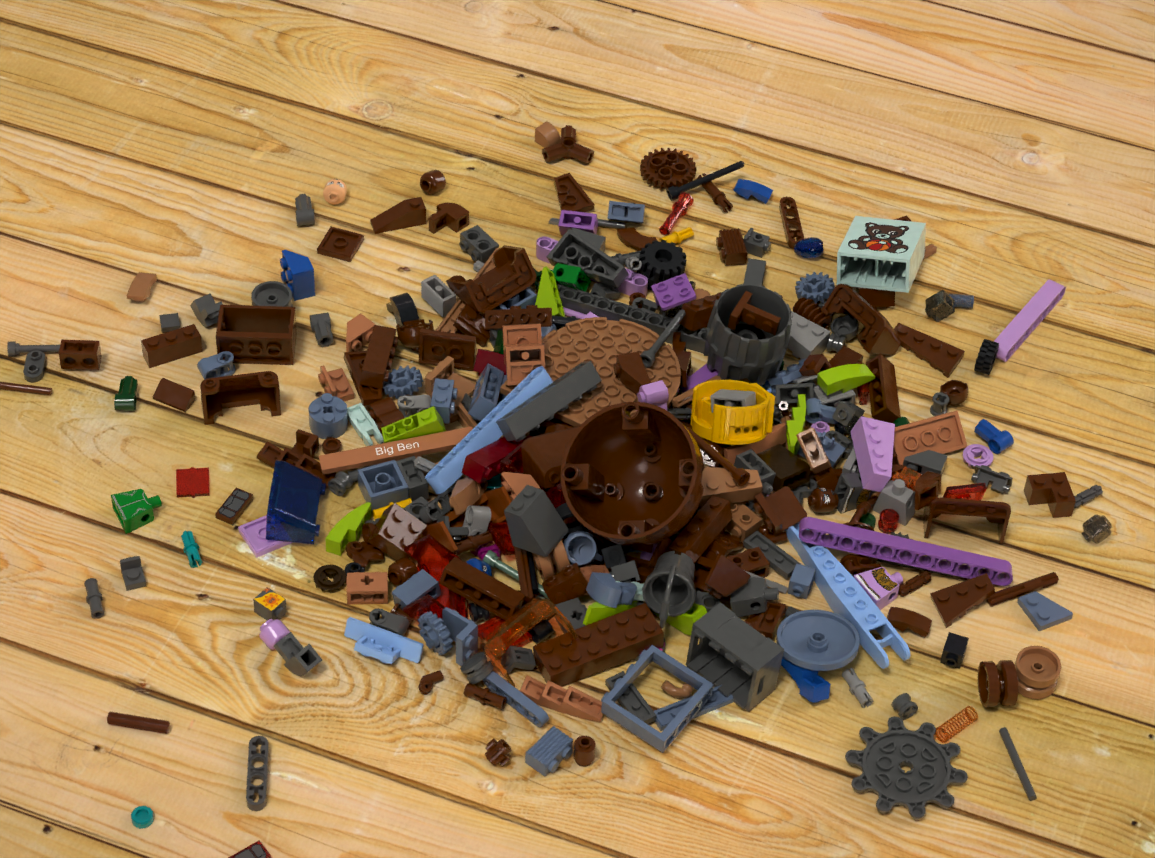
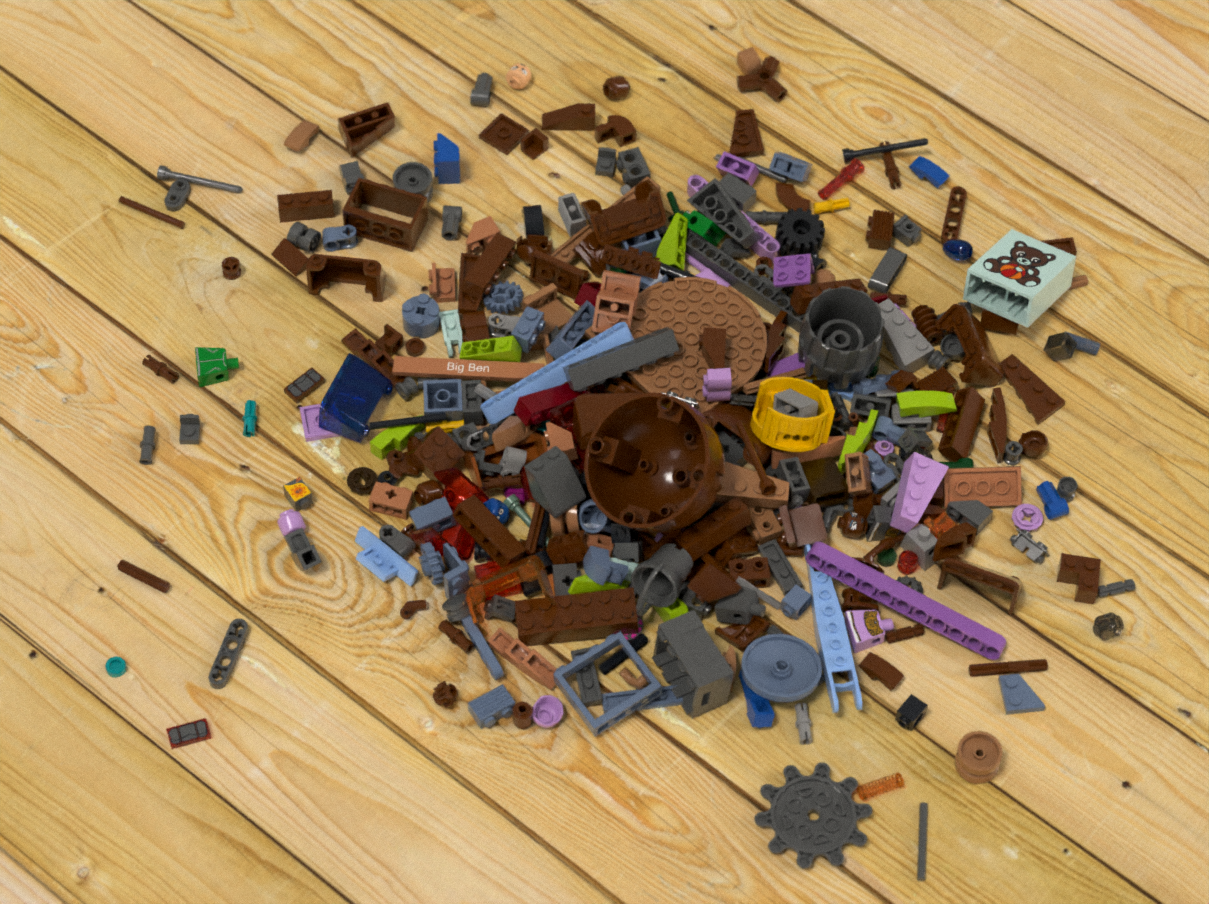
camera: 20 degrees right, 10 degrees up
(79, 525) = (160, 369): none -> reddish brown pin
(80, 354) = (219, 195): reddish brown brick -> none
(117, 418) = (231, 268): none -> reddish brown wheel
(126, 397) = (247, 248): dark green piece -> none
(169, 322) = (314, 179): dark grey tile -> none
(181, 373) = (305, 238): none -> dark grey wheel
(192, 482) = (276, 351): clear red piece -> none
(203, 264) = (365, 127): none -> reddish brown wedge
(356, 510) = (407, 421): none -> black bar
(375, 245) = (534, 144): none -> reddish brown panel
(449, 246) = (605, 162): none -> dark grey bracket
(608, 740) = (547, 711): none -> lavender hair
(628, 263) = (771, 222): light grey pin -> none
(648, 356) = (735, 336): dark grey piece -> none
(653, 673) = (619, 656): none -> black axle
(667, 168) = (853, 127): reddish brown gear -> none
(753, 316) = (846, 321): reddish brown bracket -> none
(815, 287) = (943, 294): sand blue gear -> none
(904, 706) = (838, 755): dark grey wheel -> none
(916, 386) = (998, 426): none -> reddish brown slope
(959, 598) = (941, 660): reddish brown wing -> none
(969, 491) = (989, 558): clear red tile -> none
(986, 356) = (1081, 414): black tyre -> none
(997, 683) = (935, 759): reddish brown wheel -> none
(1003, 420) = (1066, 488): none -> dark grey wheel
(1028, 319) = (1144, 383): lavender beam -> none

